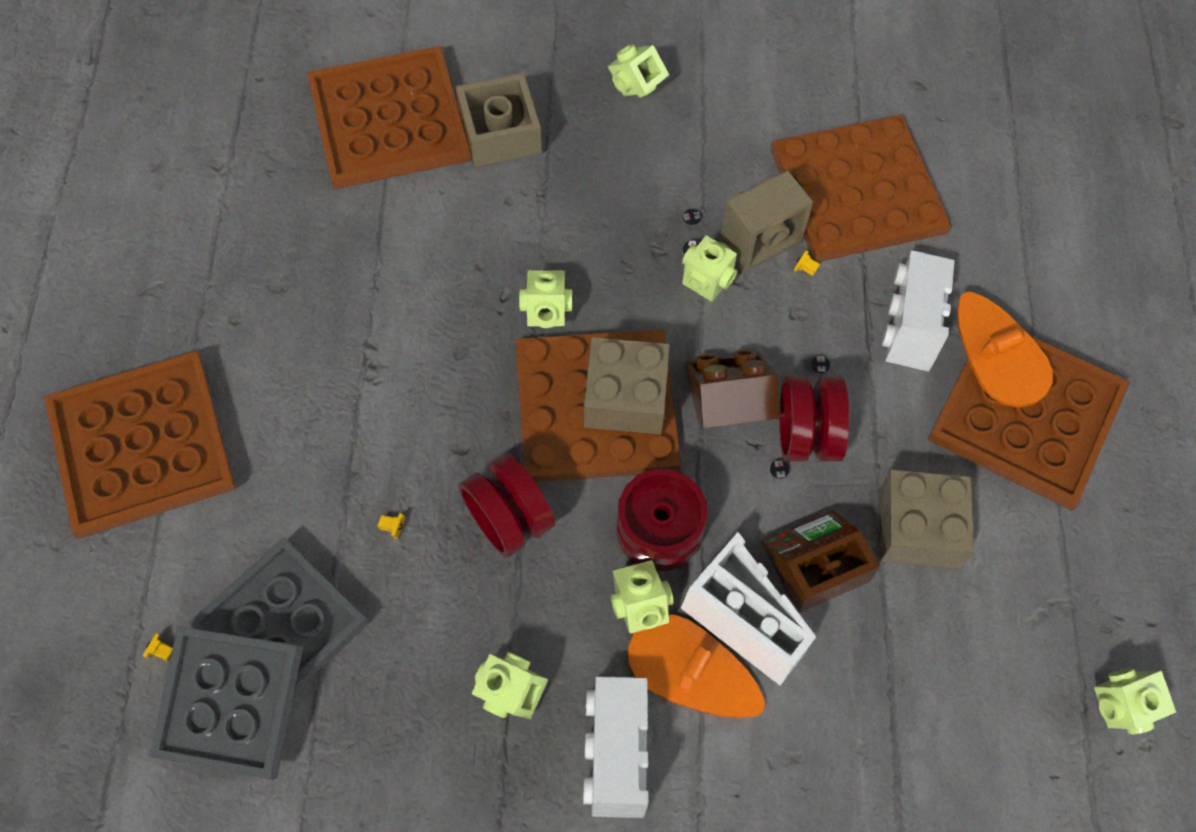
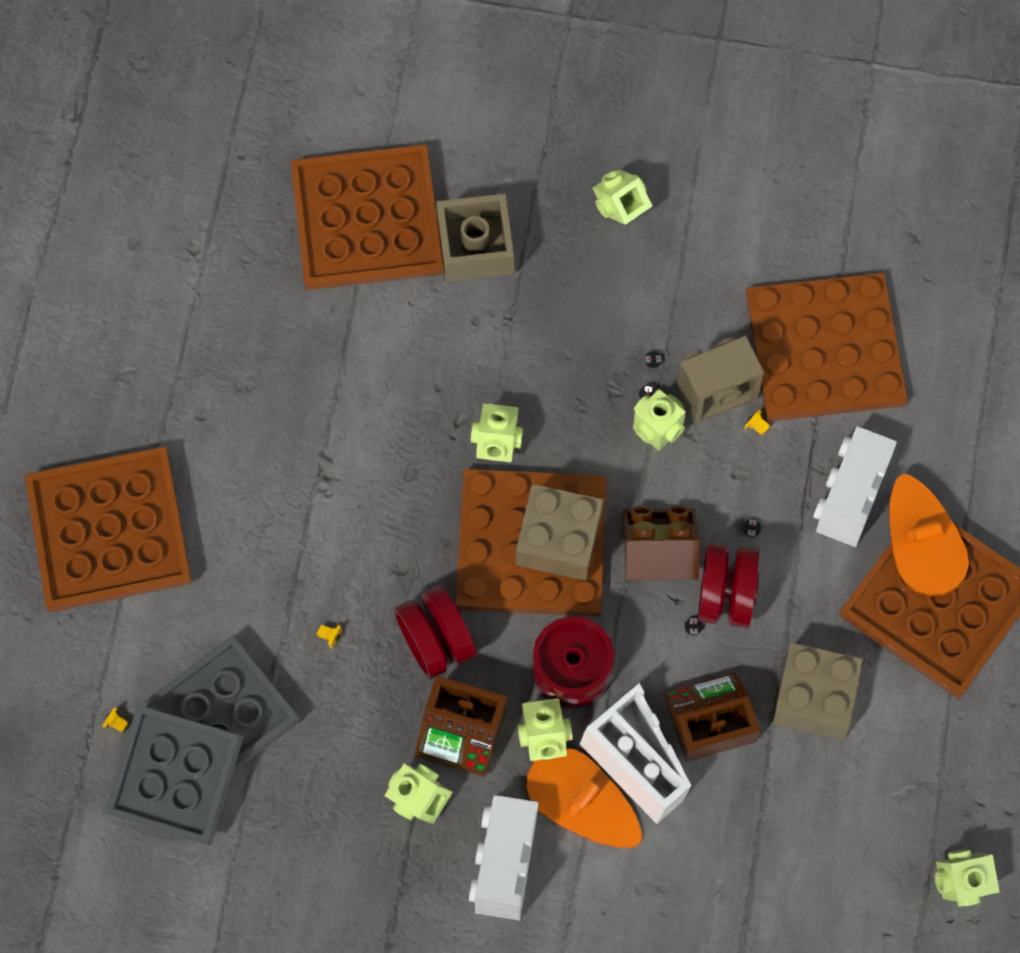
camera: 10 degrees right, 5 degrees up
(548, 604) = (461, 726): none -> reddish brown slope

